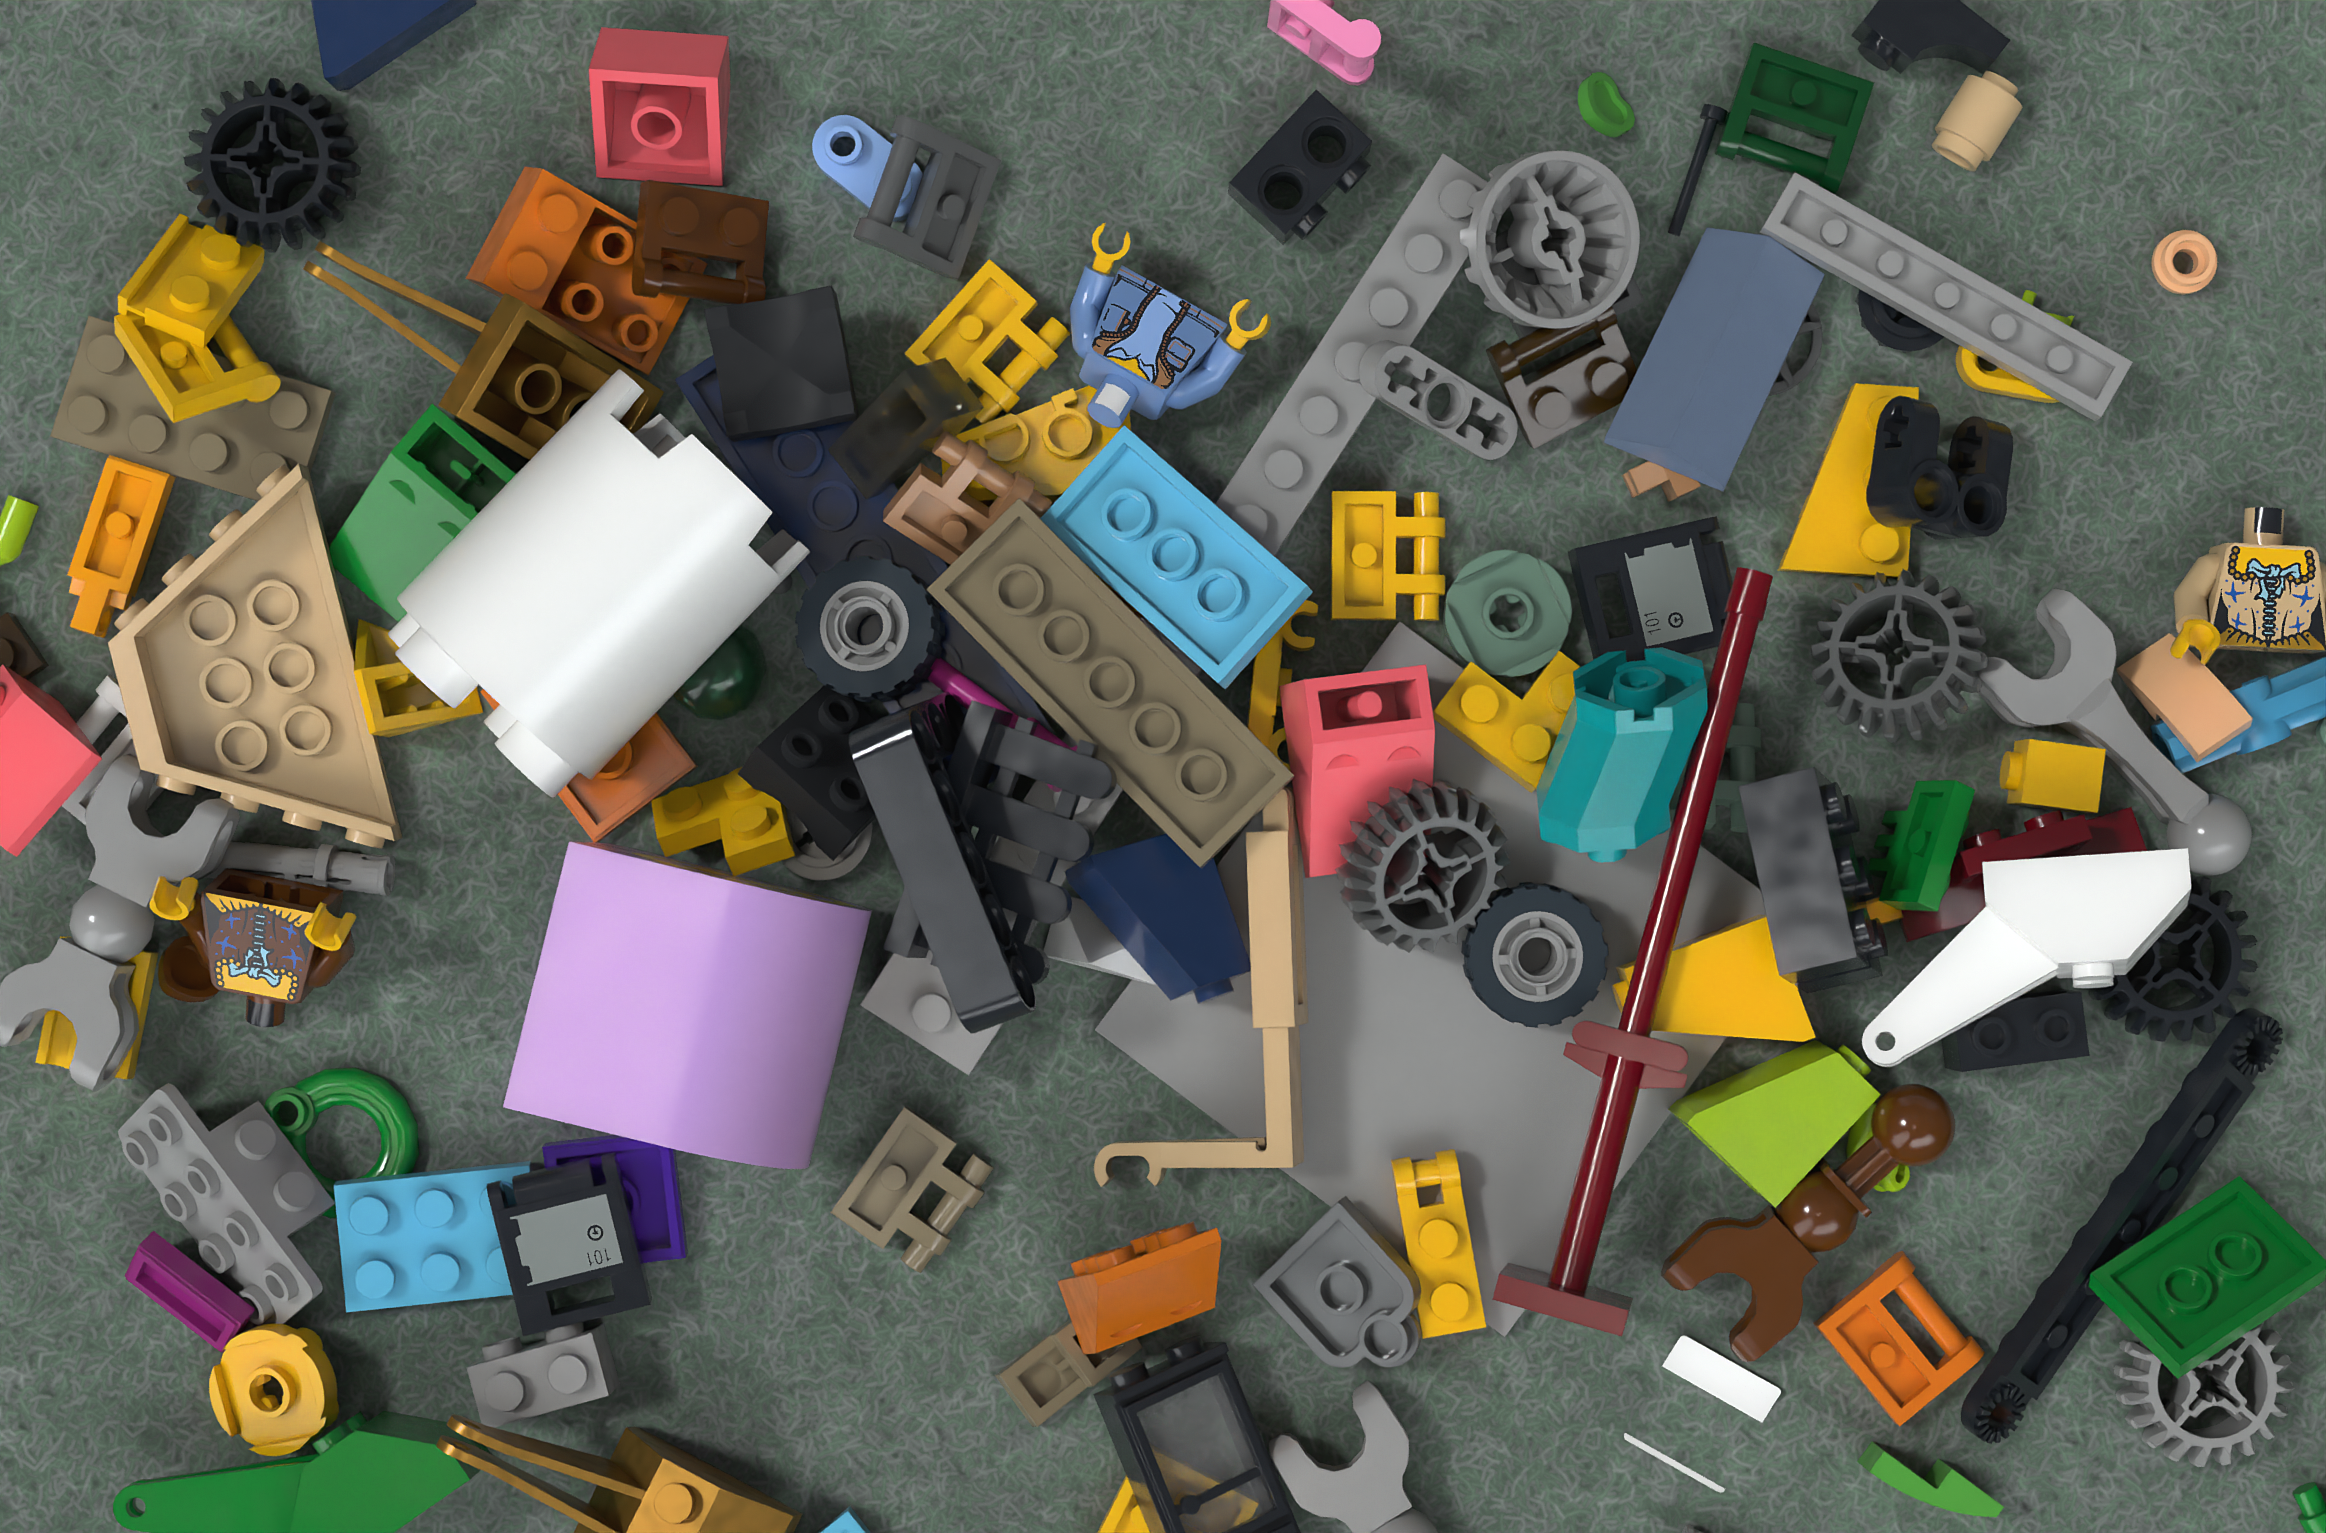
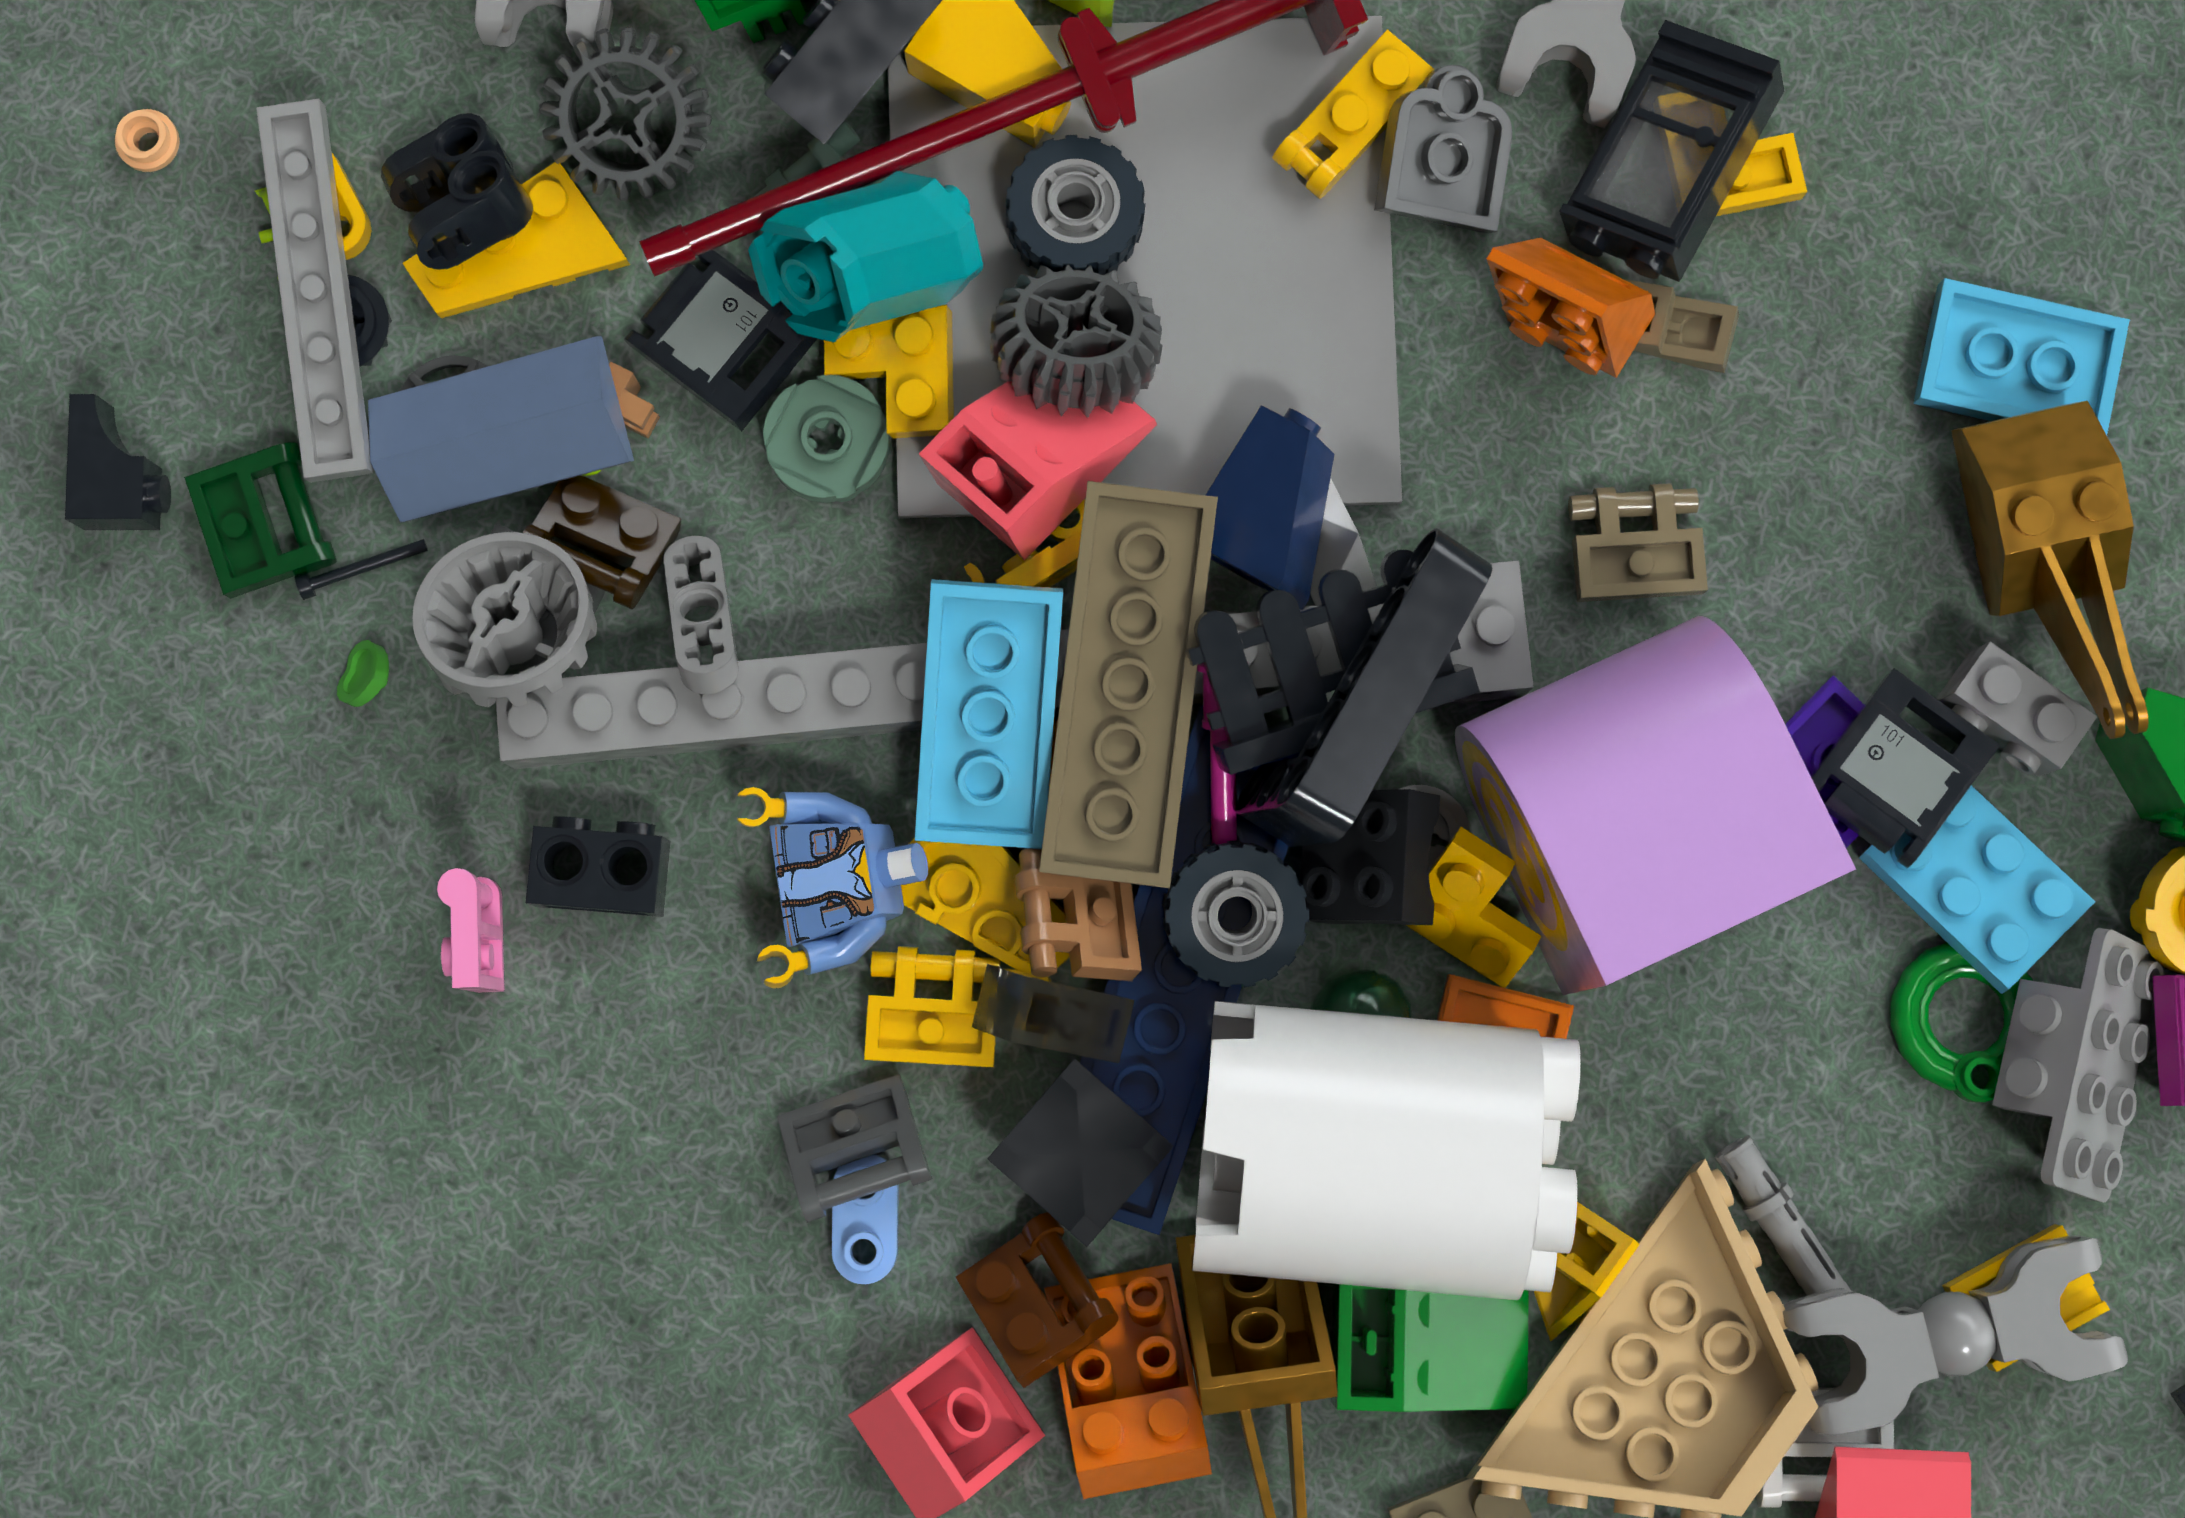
camera: 125 degrees left, 5 degrees down
(184, 973) = (1938, 1247): reddish brown piece -> none
(262, 936) = (1864, 1205): torso -> none
(1277, 1008) = (1281, 361): tan hinge -> none
(1365, 555) = (867, 581): yellow plate -> none
(1977, 120) = (154, 378): tan brick -> none

